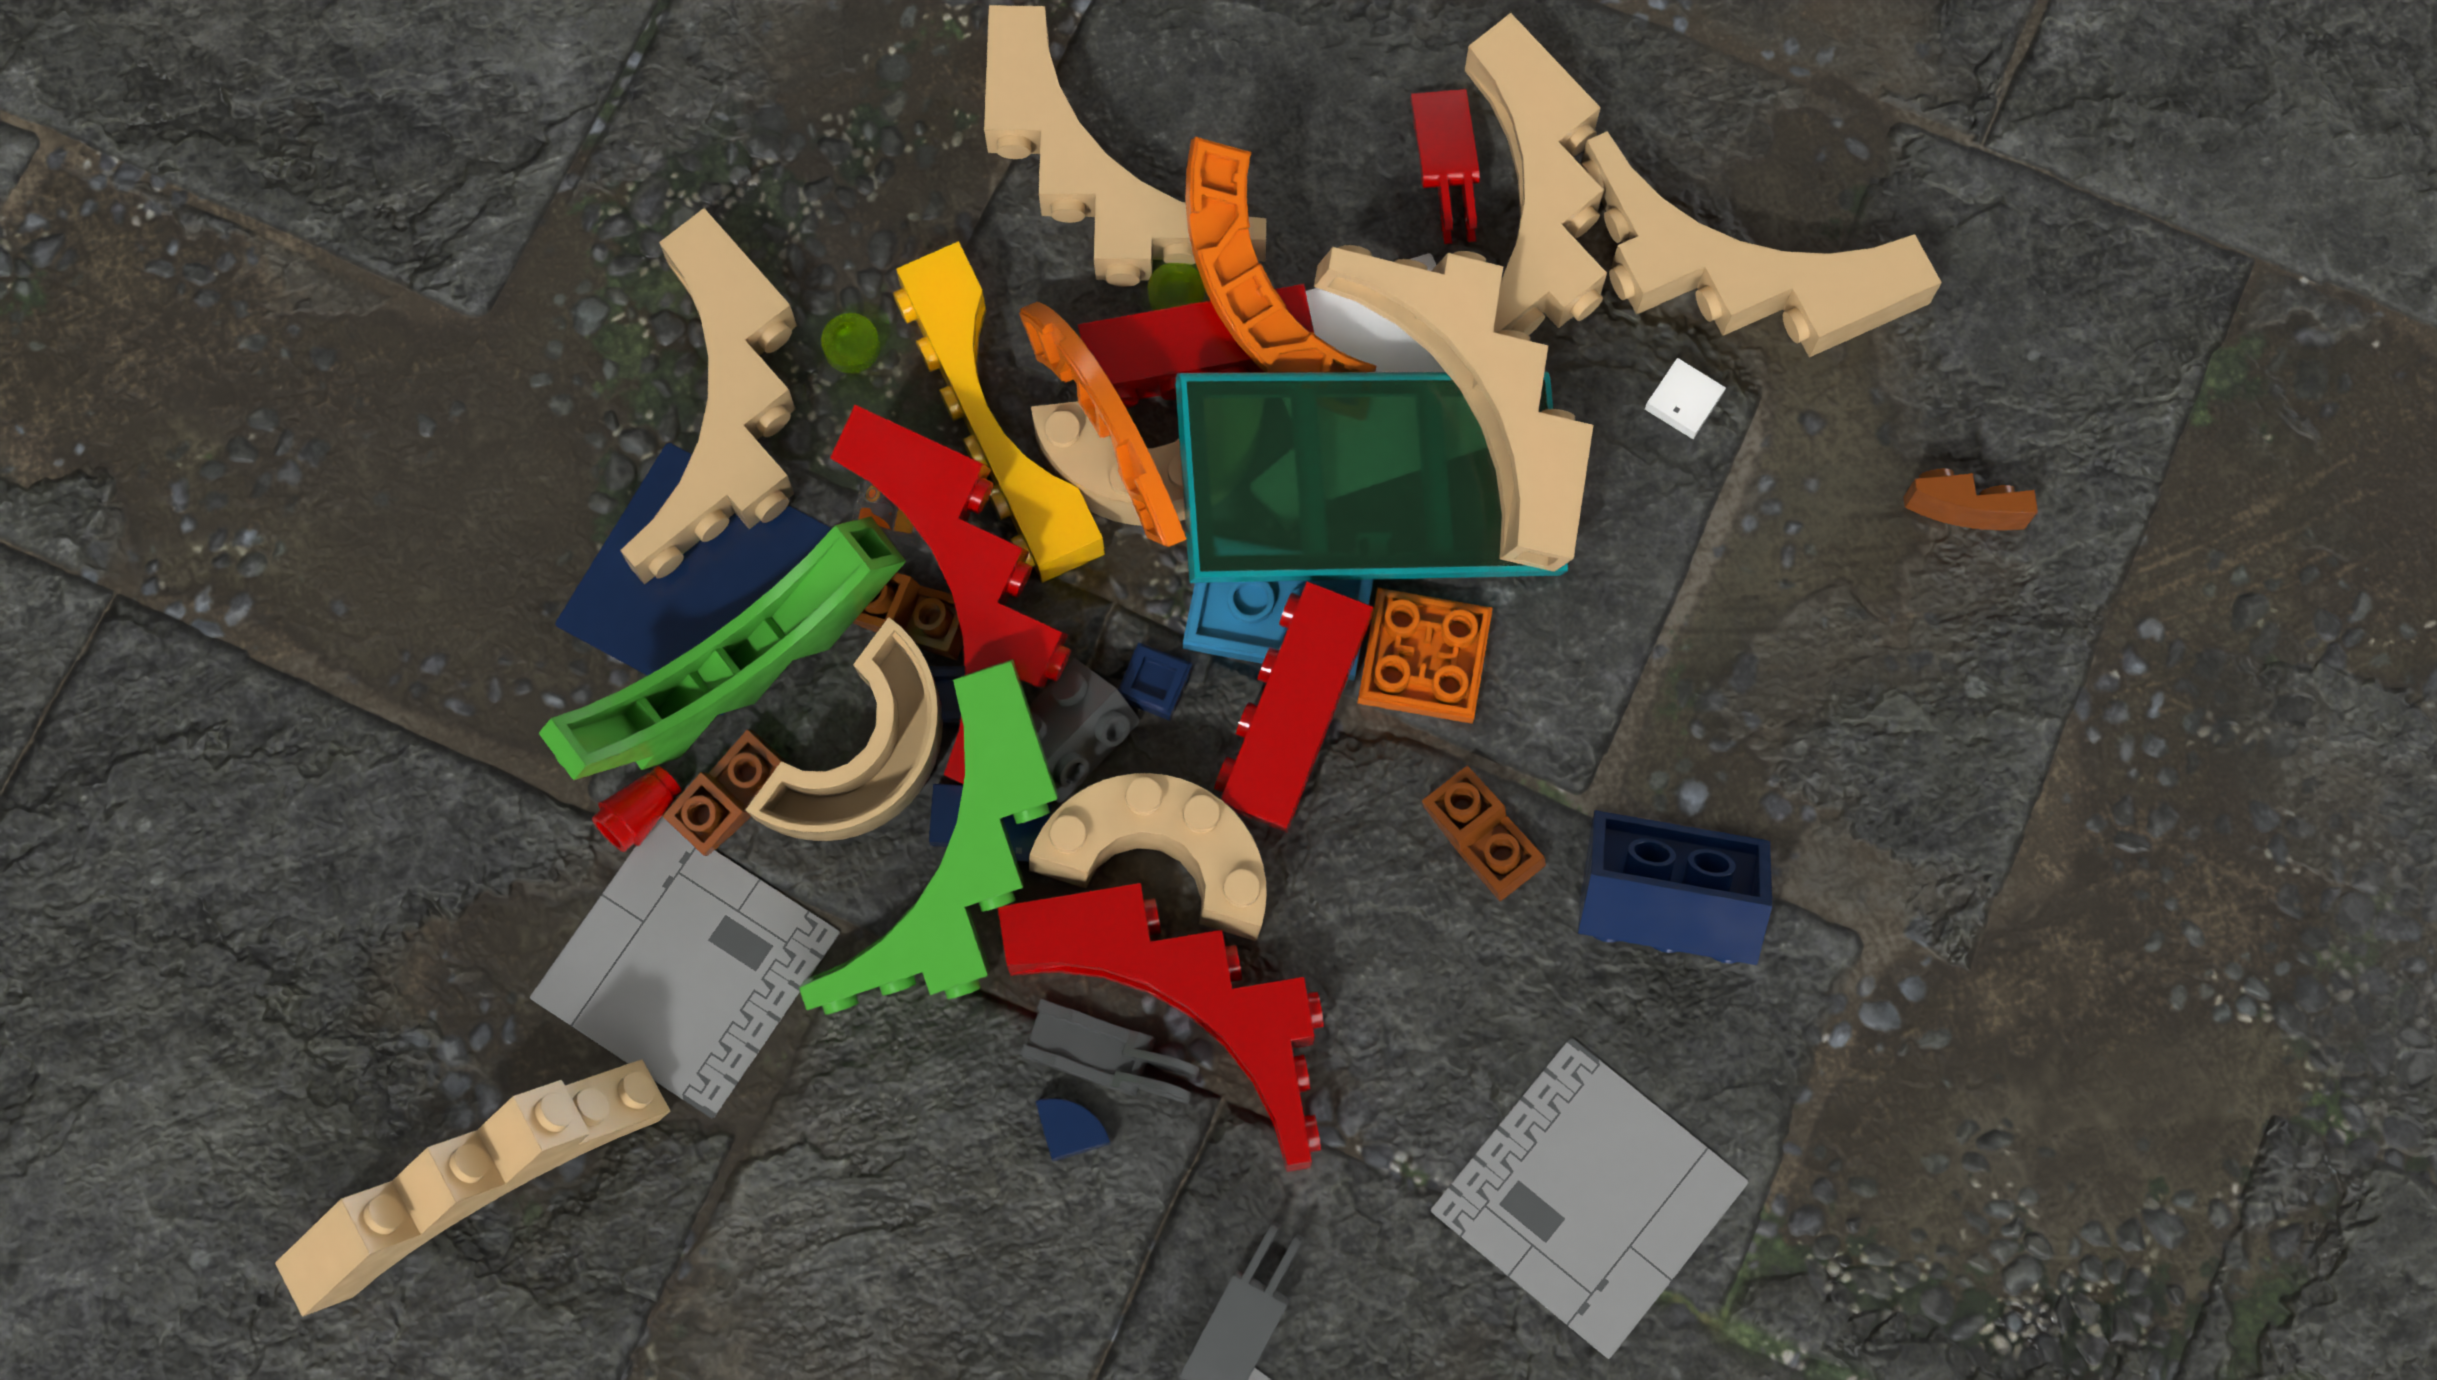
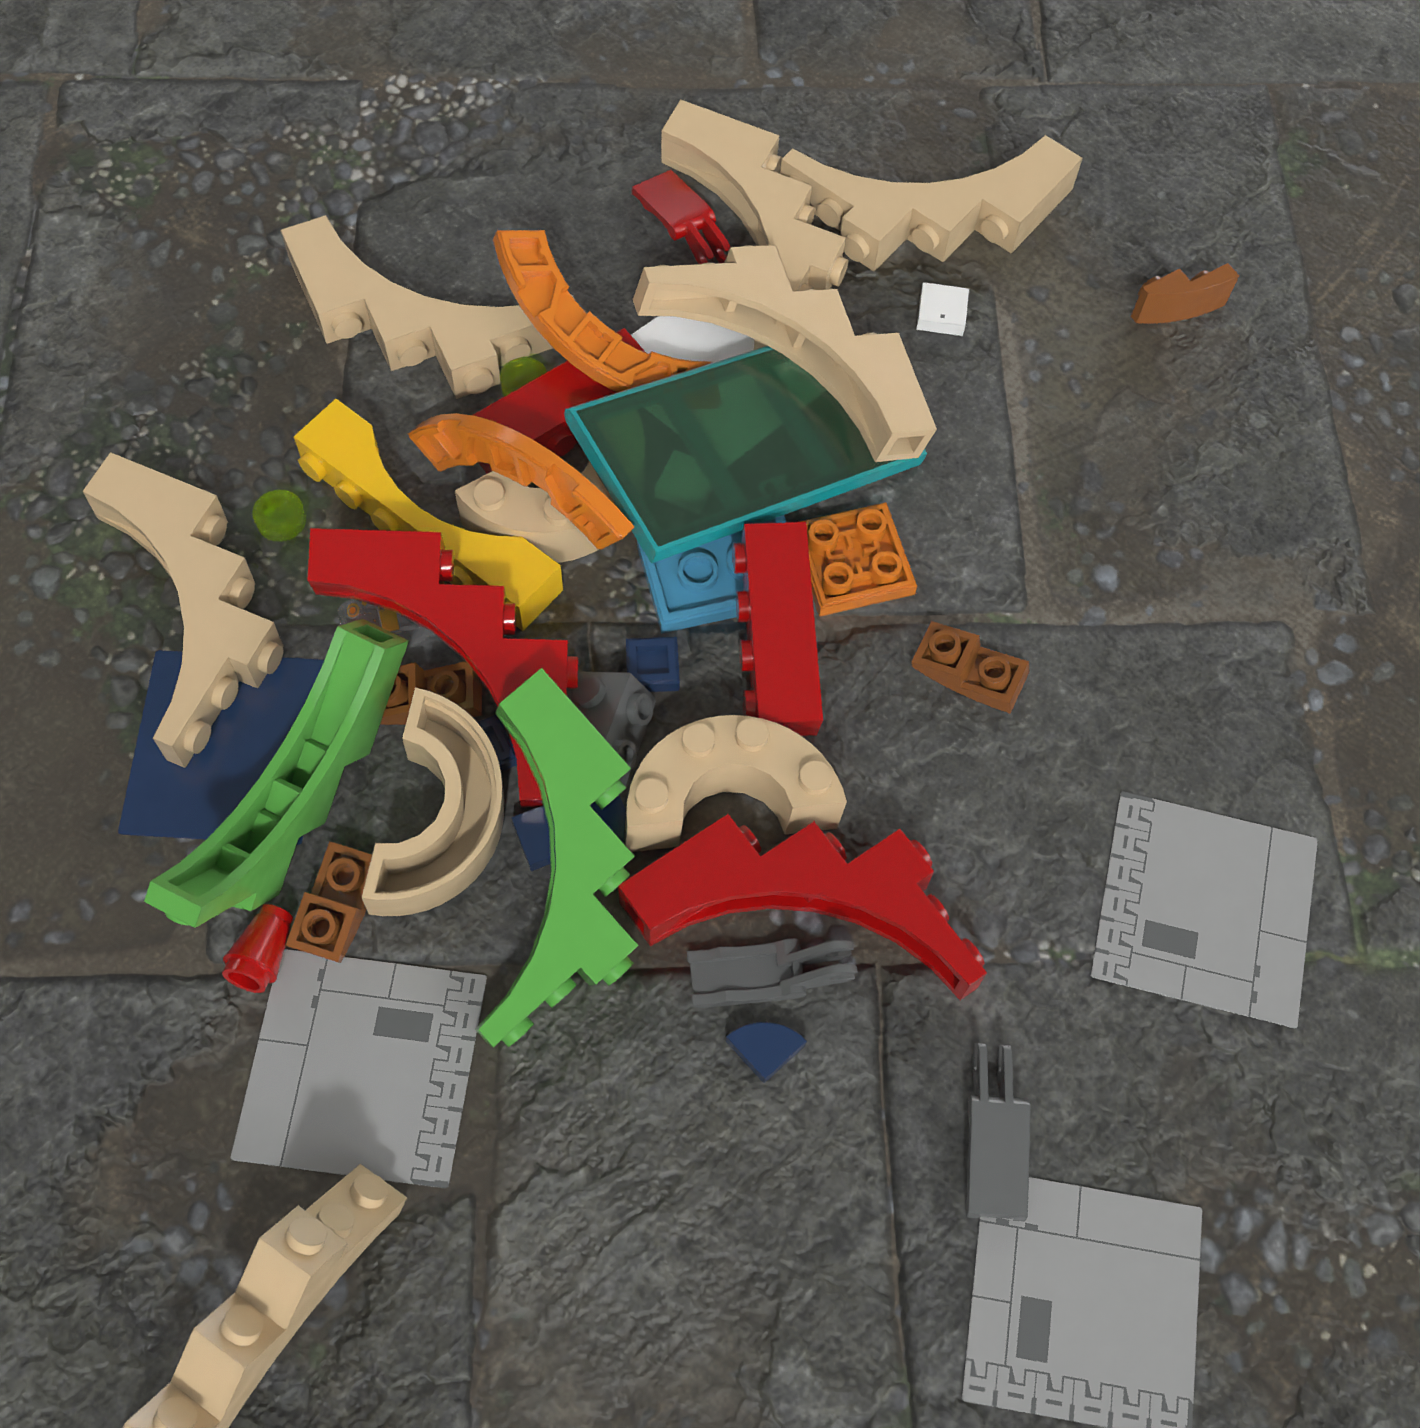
camera: 30 degrees left, 10 degrees down
(1676, 888) = (1141, 642): dark blue slope -> none

